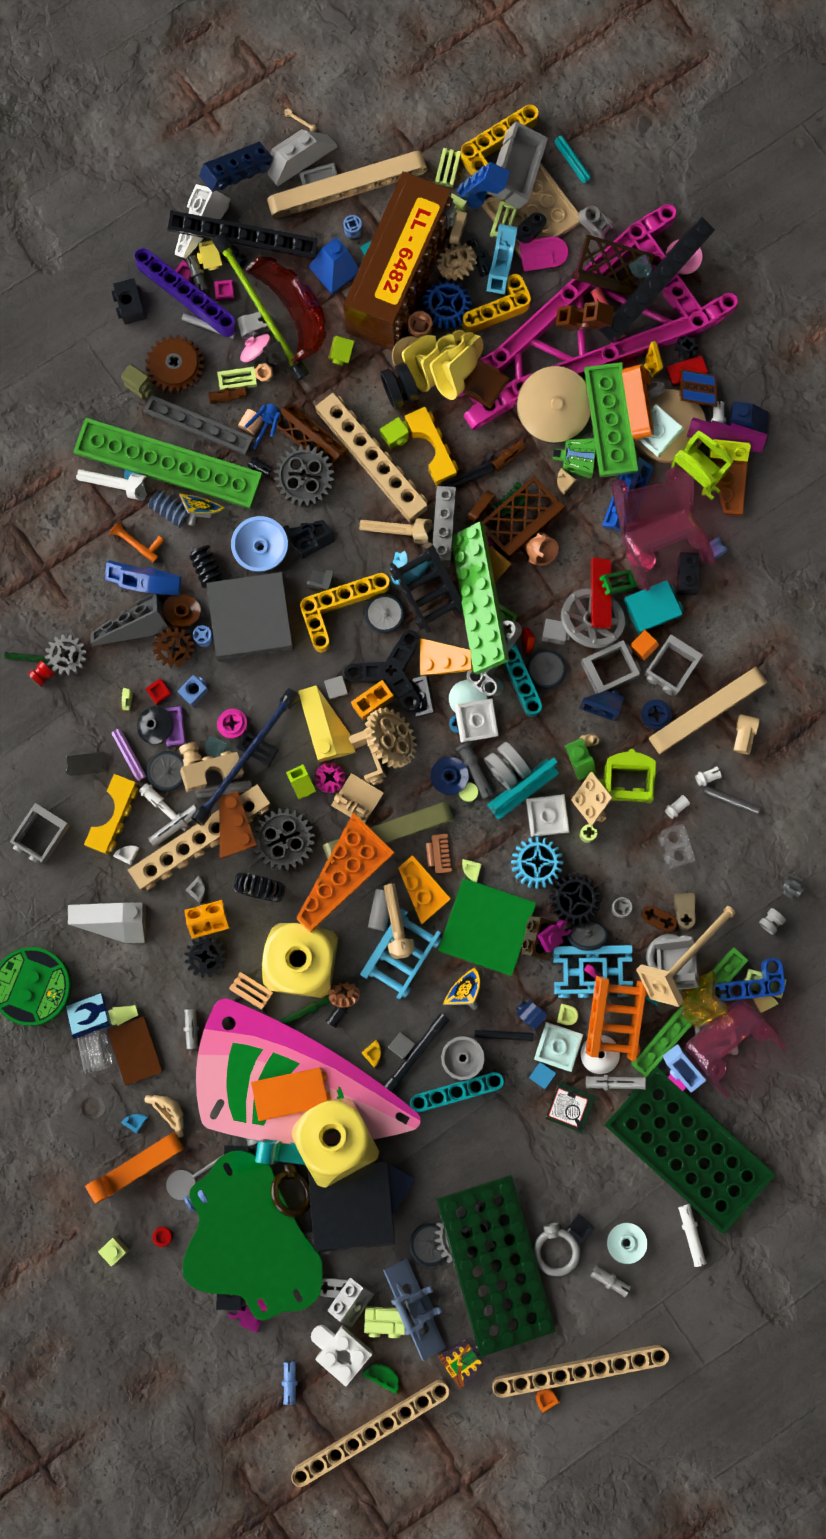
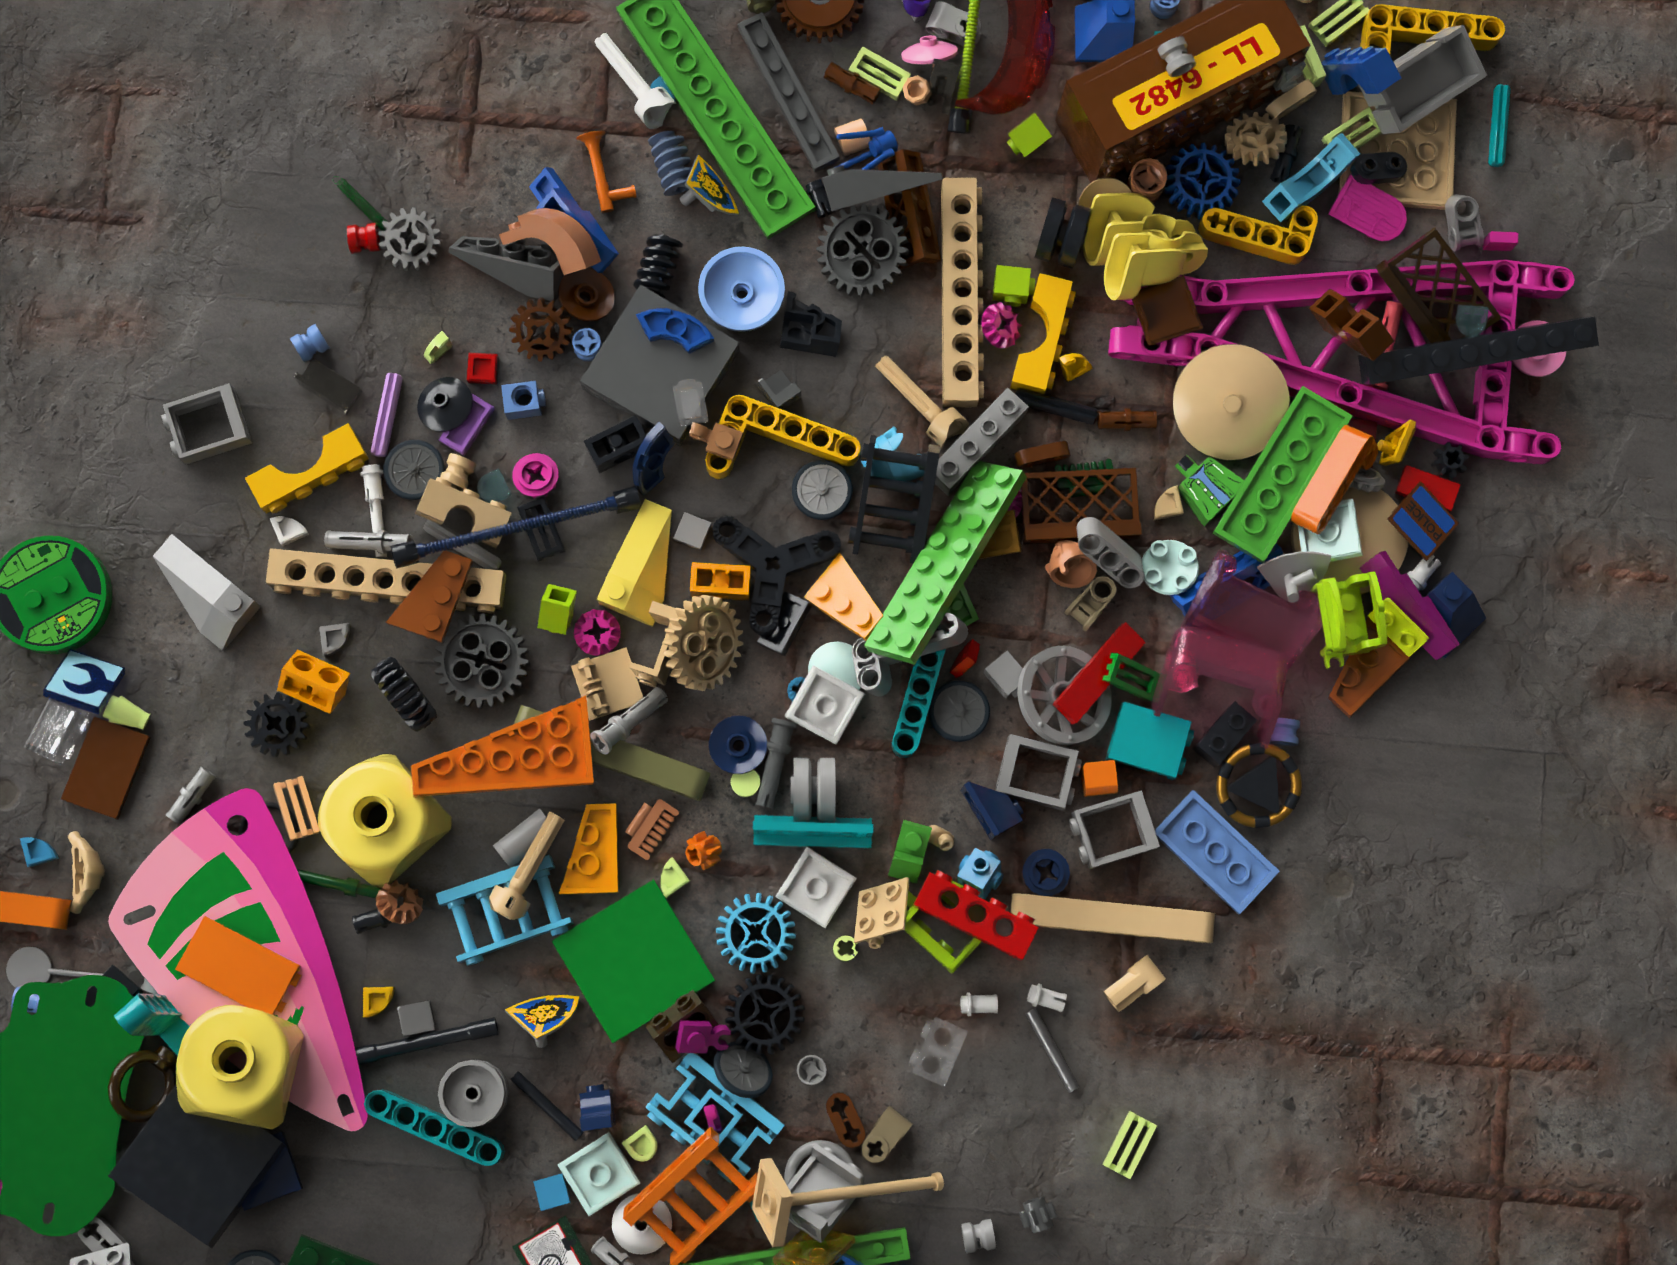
camera: 30 degrees right, 0 degrees up
(58, 750) = (309, 343): none -> medium blue wheel
(142, 588) = (561, 232): none -> nougat arch
(243, 589) = (675, 326): none -> blue tile
(261, 673) = (615, 444): none -> black brick
(277, 443) = (862, 185): none -> dark grey wedge
(283, 621) = (690, 402): none -> clear brick
(285, 667) = (650, 459): none -> dark blue tile
(314, 629) = (721, 440): none -> medium nougat plate
(383, 814) = (620, 726): none -> light grey pin
(390, 248) = (1176, 55): none -> light grey wheel
(400, 459) = (993, 318): none -> dark pink gear
(460, 449) = (1074, 365): none -> yellow tile
(476, 842) = (703, 850): none -> orange gear
(557, 528) = (1099, 549): none -> light grey beam
(567, 563) = (1090, 604): none -> dark tan piece
(591, 512) = (1170, 567): none -> light aqua dish
(621, 217) = (1500, 241): none -> dark pink tile
(624, 739) = (980, 871): none -> dark azure brick
(657, 464) = (1295, 572): none -> light grey shield
(673, 753) = (1014, 944): none -> red brick
(726, 585) = (1259, 785): none -> piece
(731, 635) = (1216, 852): none -> medium blue plate
(816, 815) = (1140, 1150): none -> yellowish green tile

